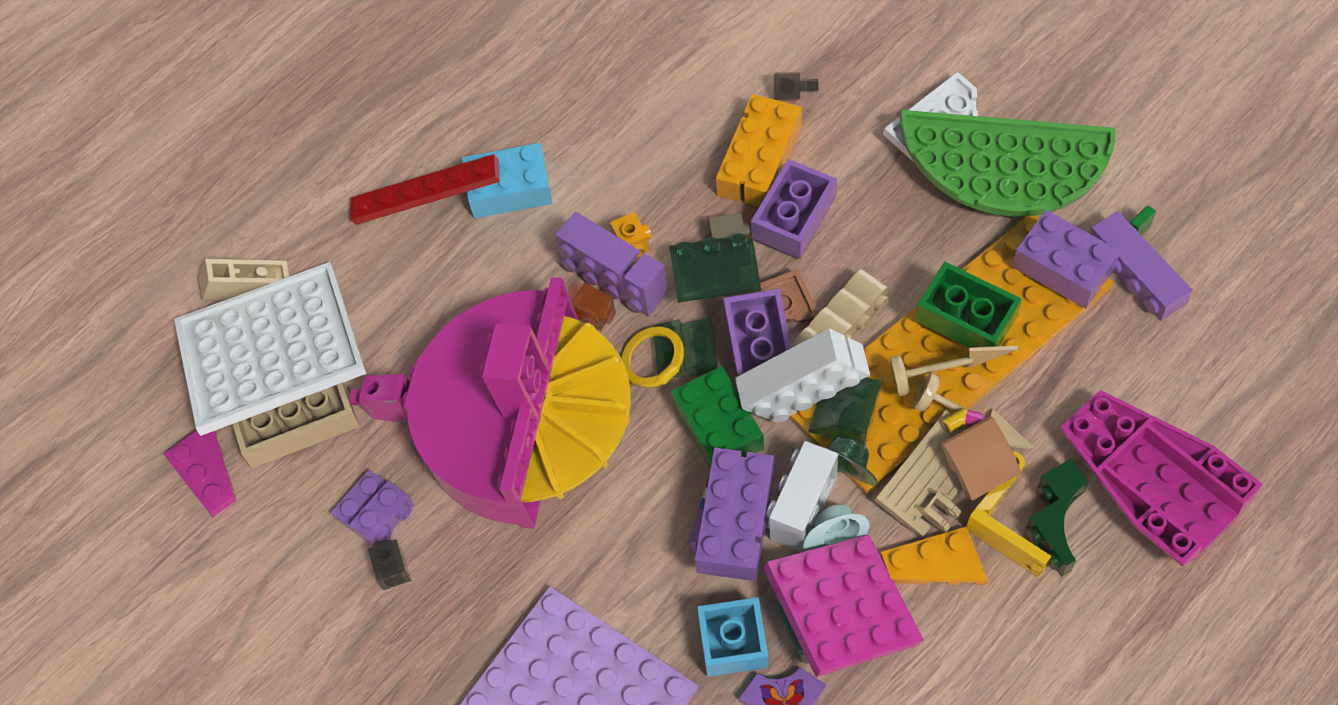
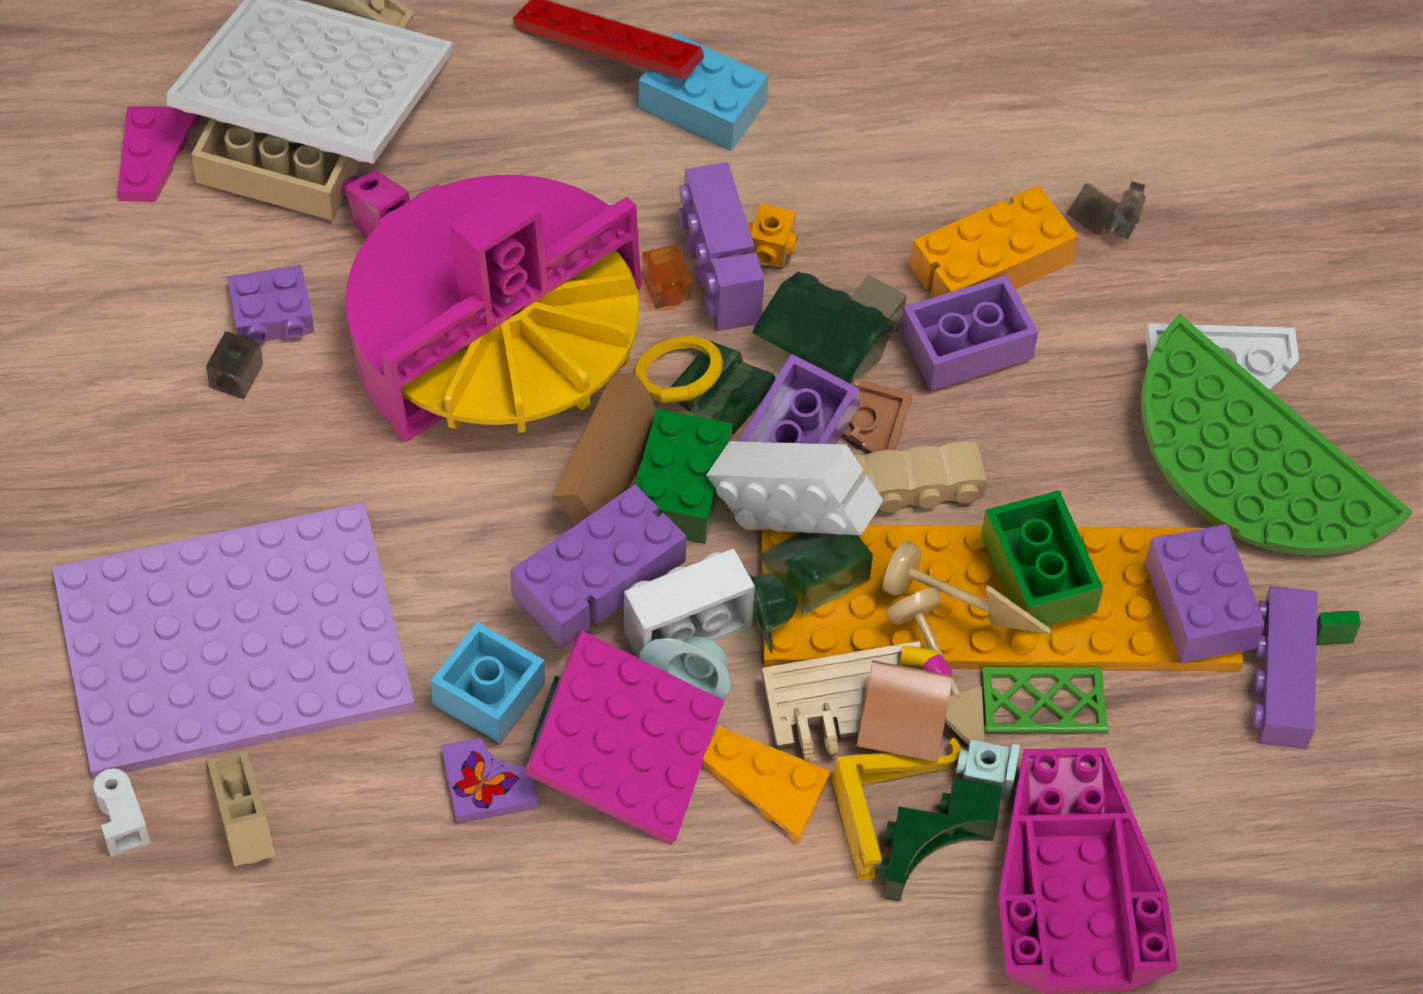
camera: 30 degrees right, 5 degrees down
(667, 441) = (608, 448): none -> medium nougat slope
(808, 66) = (1132, 204): none -> clear smoke bar
(1028, 367) = (1062, 676): none -> bright green window
(1058, 450) = (989, 765): none -> light aqua brick

